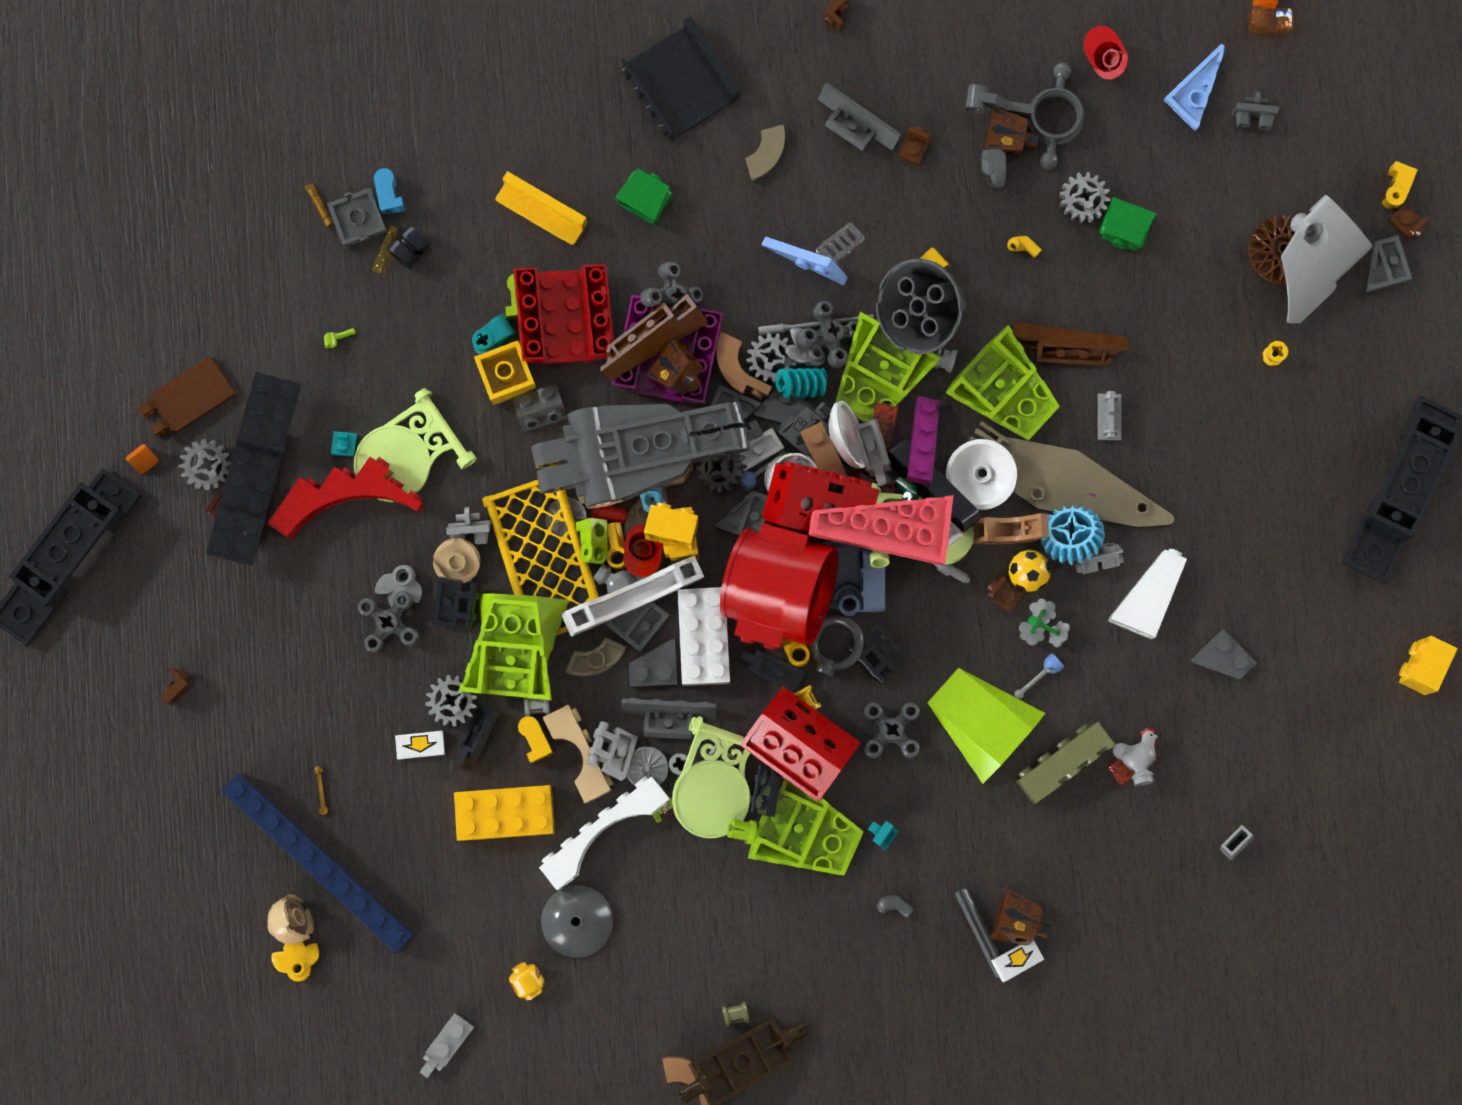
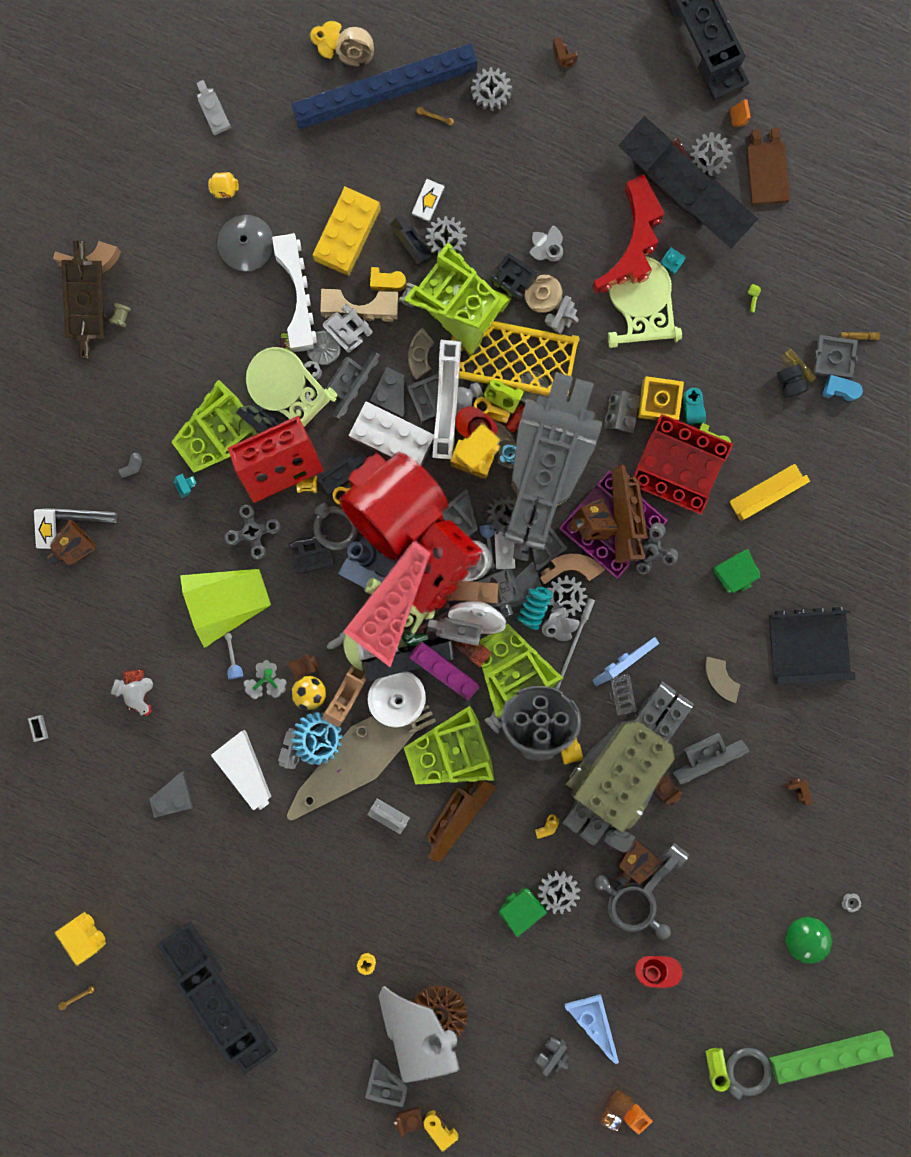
camera: 115 degrees right, 5 degrees up
(263, 752) = (483, 89): none -> light grey gear
(383, 631) = (531, 219): dark grey gear -> none
(746, 832) = (241, 388): lime bush -> none
(828, 335) = (555, 643): dark grey gear -> none
(915, 198) = (625, 766): none -> olive piece
(1065, 762) = (161, 639): olive wedge -> none

